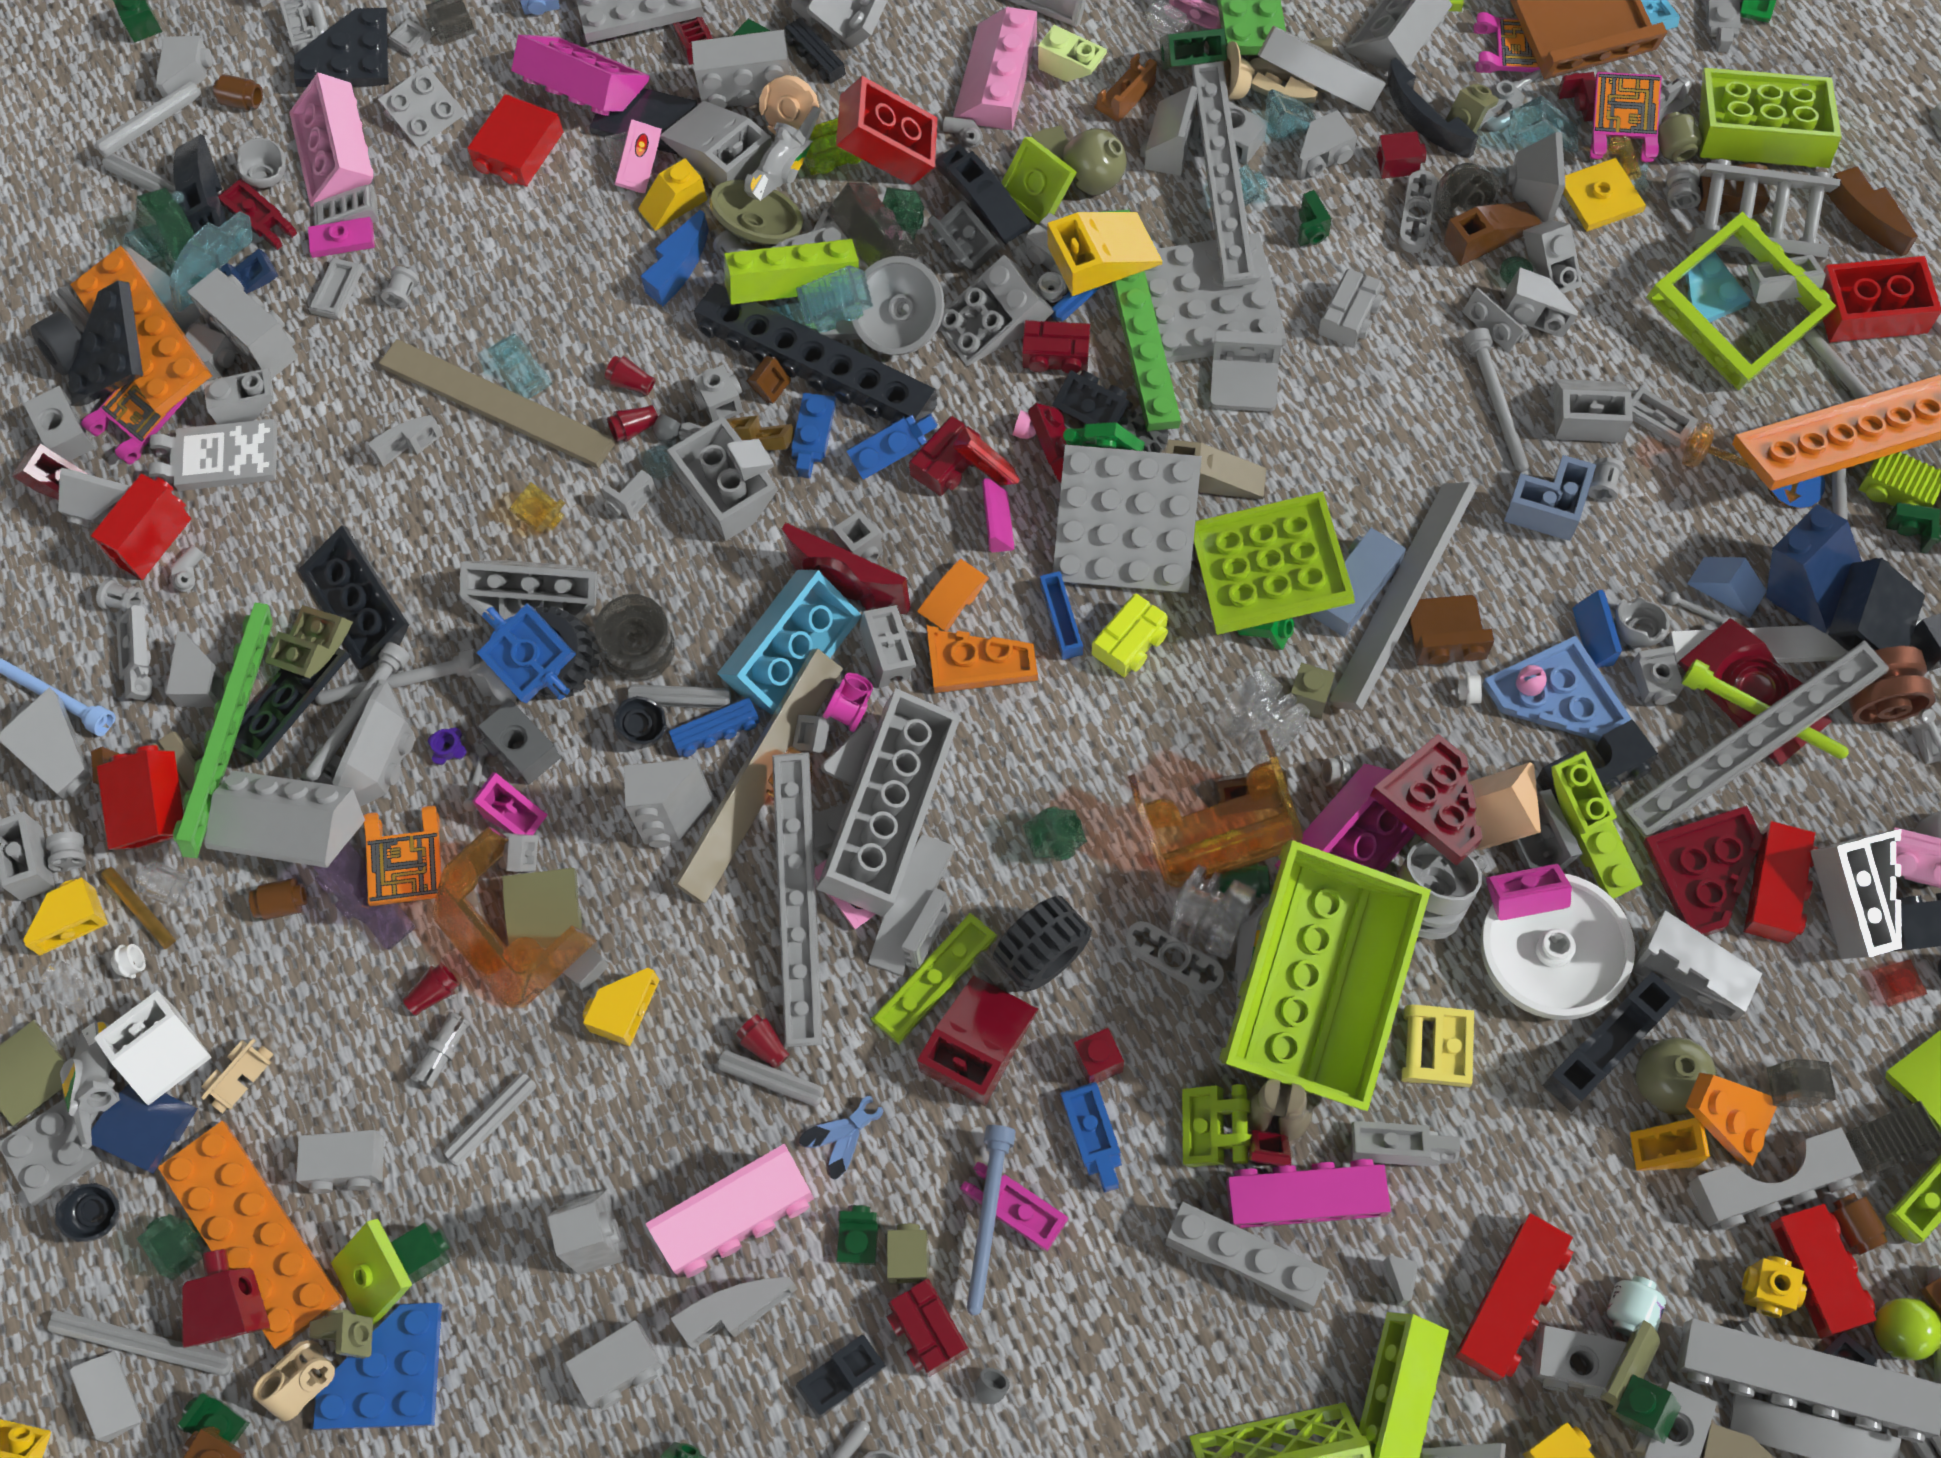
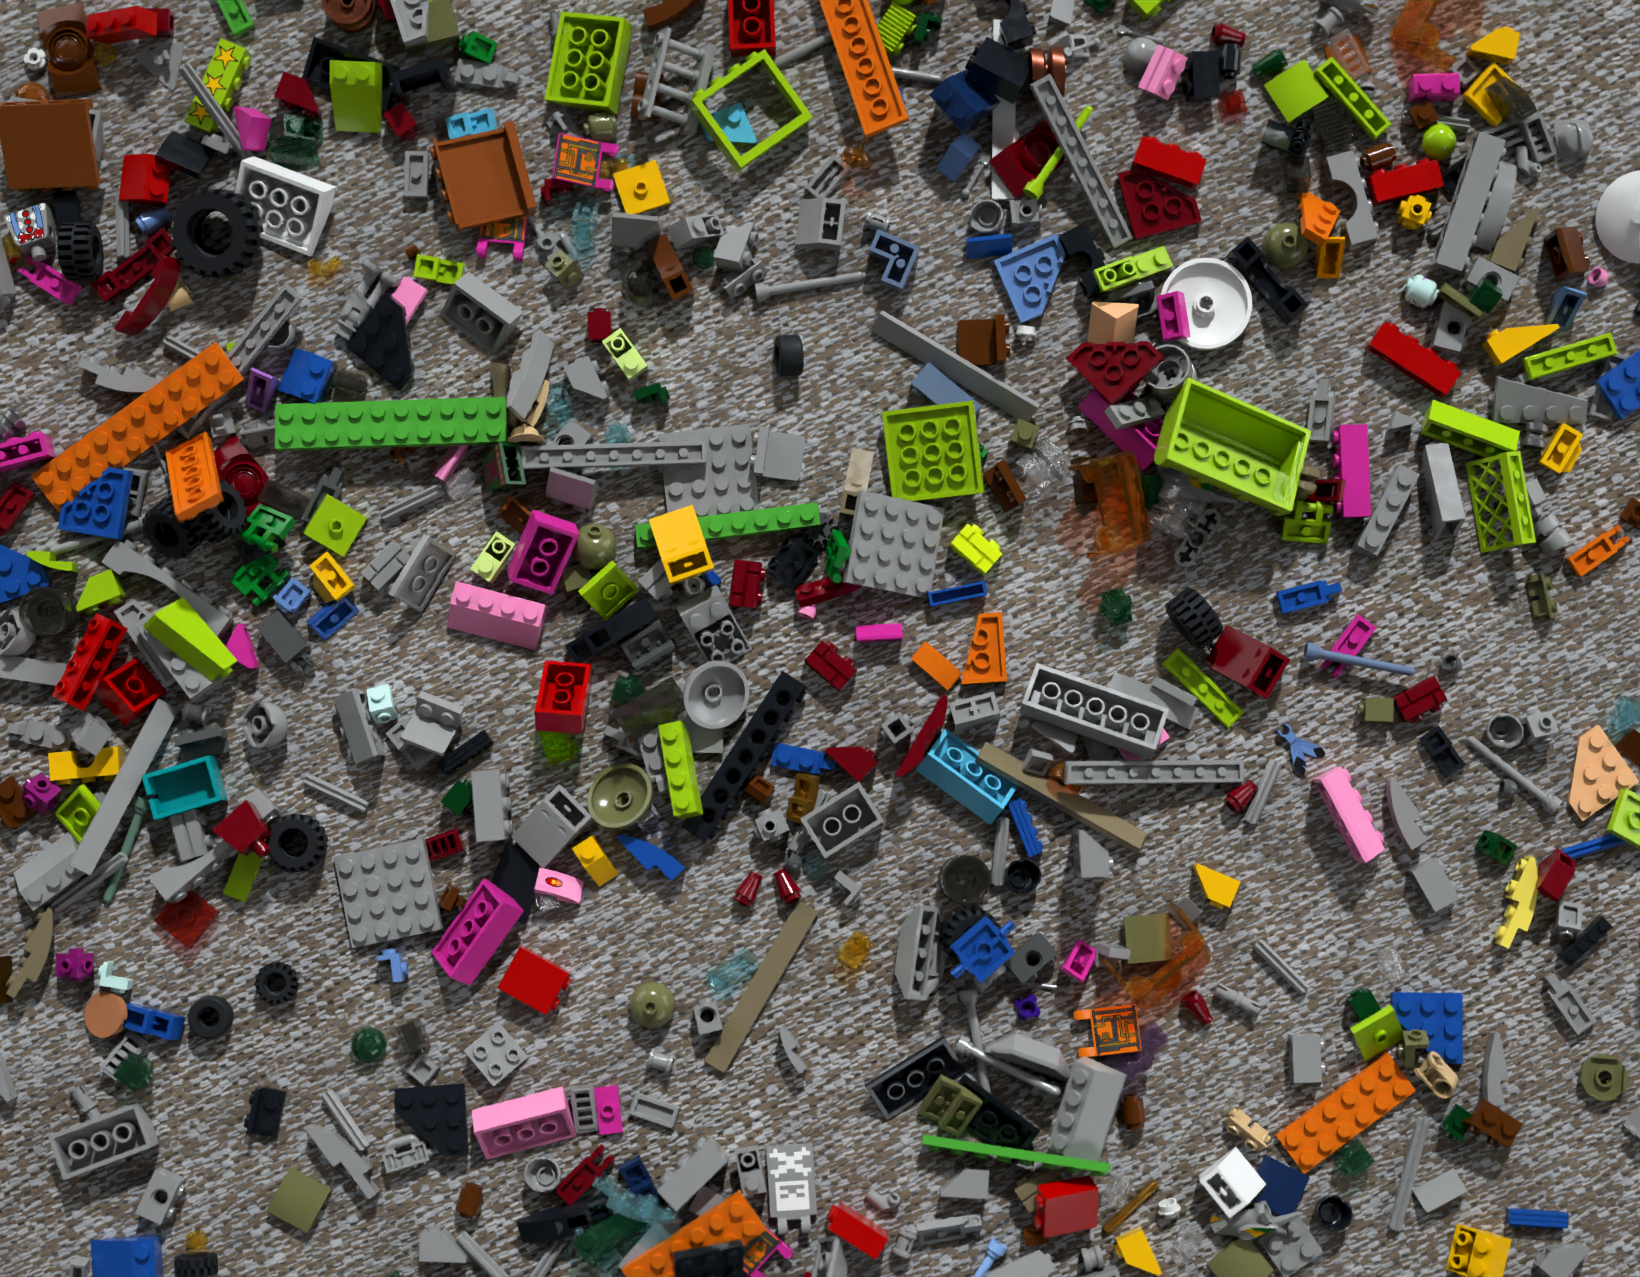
camera: 90 degrees left, 20 degrees up
(221, 1303) = (1393, 1121): dark red torso -> none
(456, 336) = (707, 1026): none -> light grey brick
(476, 274) = (652, 1004): none -> olive cylinder
(485, 1295) = (1390, 964): none -> clear brick
(588, 1233) = (1361, 900): light grey wedge -> none
(626, 46) = (450, 897): none -> reddish brown tile
(749, 457) = (838, 799): light grey slope -> none
(782, 158) = (576, 775): light grey animal -> none
(787, 101) = (525, 770): light nougat tile -> none
(809, 492) = (854, 760): none -> dark red slope
(834, 298) = (708, 738): clear light blue brick -> none
(849, 700) = (1019, 735): dark pink piece -> none
(857, 1236) = (1362, 740): dark green bracket -> none
(890, 444) = (821, 703): blue hinge -> none
(965, 128) = (547, 639): light grey arm -> none
(985, 458) = (838, 637): red slope -> none
(1082, 94) = (542, 552): none -> dark pink brick
(1098, 1056) = (1262, 589): dark red brick -> none
(1229, 670) = (1004, 486): none -> reddish brown bracket
(1291, 1353) = (1442, 490): none -> light grey slope
(1351, 307) = (729, 376): light grey brick -> none
(1362, 182) = (625, 354): none -> yellowish green slope
(1363, 828) = (1134, 412): none -> light grey plate
(1390, 373) = (788, 355): none -> black tyre
(1413, 200) = (664, 318): light grey beam -> none
(1451, 136) = (536, 318): black slope -> none
(1451, 1046) = (1264, 376): light yellow plate -> none
(1534, 685) = (1022, 296): bright pink hinge -> none
(1683, 187) = (647, 128): light grey wheel -> none
(1697, 967) = (1222, 222): wedge -> none
(1774, 286) = (739, 88): light grey slope -> none
(1859, 1066) = (1288, 139): none -> black hinge
(1861, 893) = (1182, 117): light grey wedge -> none

